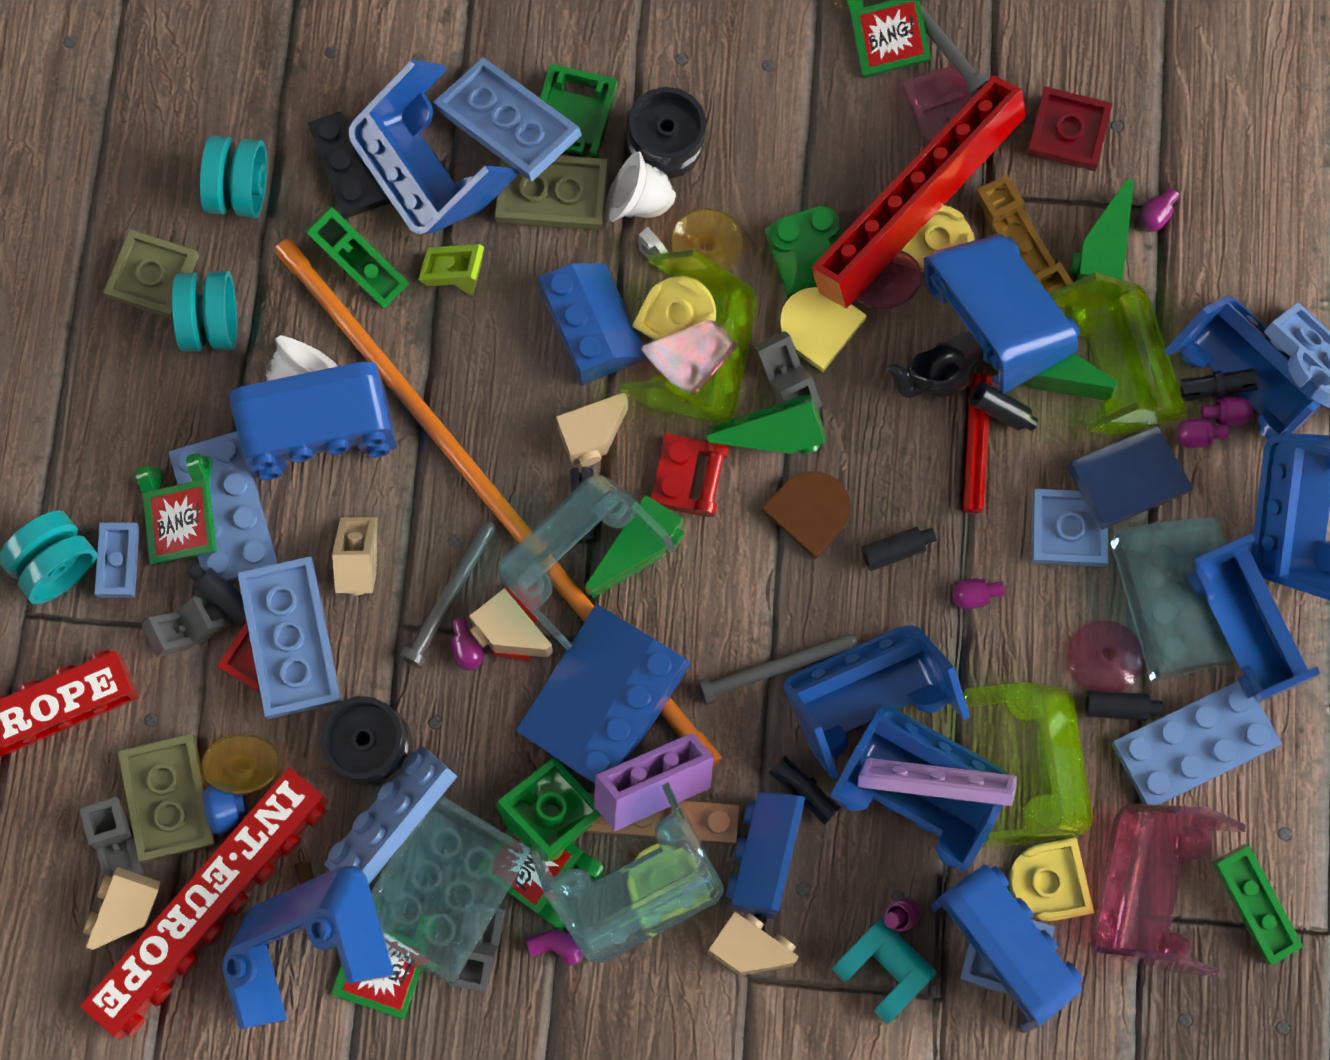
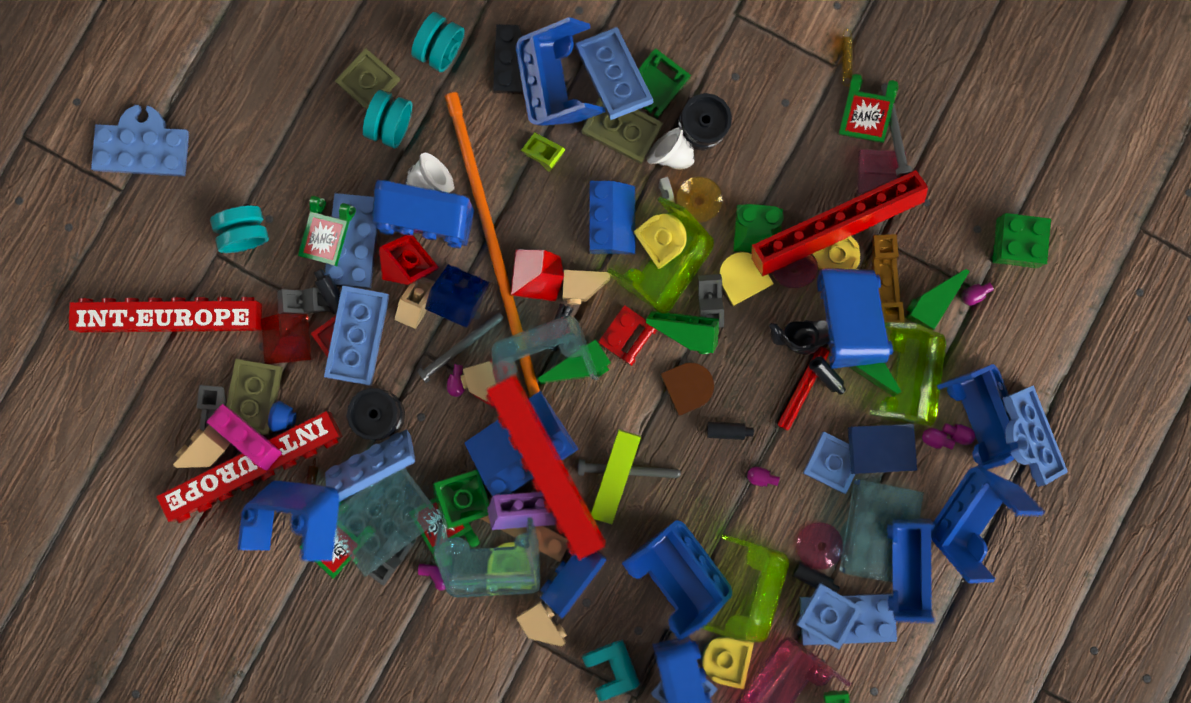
camera: 20 degrees right, 10 degrees up
(117, 560) = (279, 245): medium blue plate -> none
(181, 691) = (286, 338): none -> clear red slope
(181, 854) = (244, 437): none -> dark pink brick
(240, 763) = (304, 388): clear yellow dish -> none
(315, 502) = (405, 261): none -> red slope
(356, 256) = (490, 119): green slope -> none
(413, 521) = (456, 295): none -> clear blue slope
(518, 442) = (536, 275): none -> red slope
(657, 696) = (546, 467): none -> red brick
(691, 354) = (658, 266): clear pink wing -> none
(762, 681) = (615, 476): none -> lime tile
(801, 785) = (612, 549): black pin -> none
(854, 684) = (673, 499): blue windscreen -> none
(902, 914) = (634, 644): magenta cylinder -> none
(938, 781) = (687, 580): lavender tile -> none
(1069, 128) = (947, 220): dark red plate -> none
(1167, 745) = (829, 616): none -> medium blue plate
(1185, 112) = (1021, 240): none -> green brick
(1218, 384) = (962, 415): black pin -> none

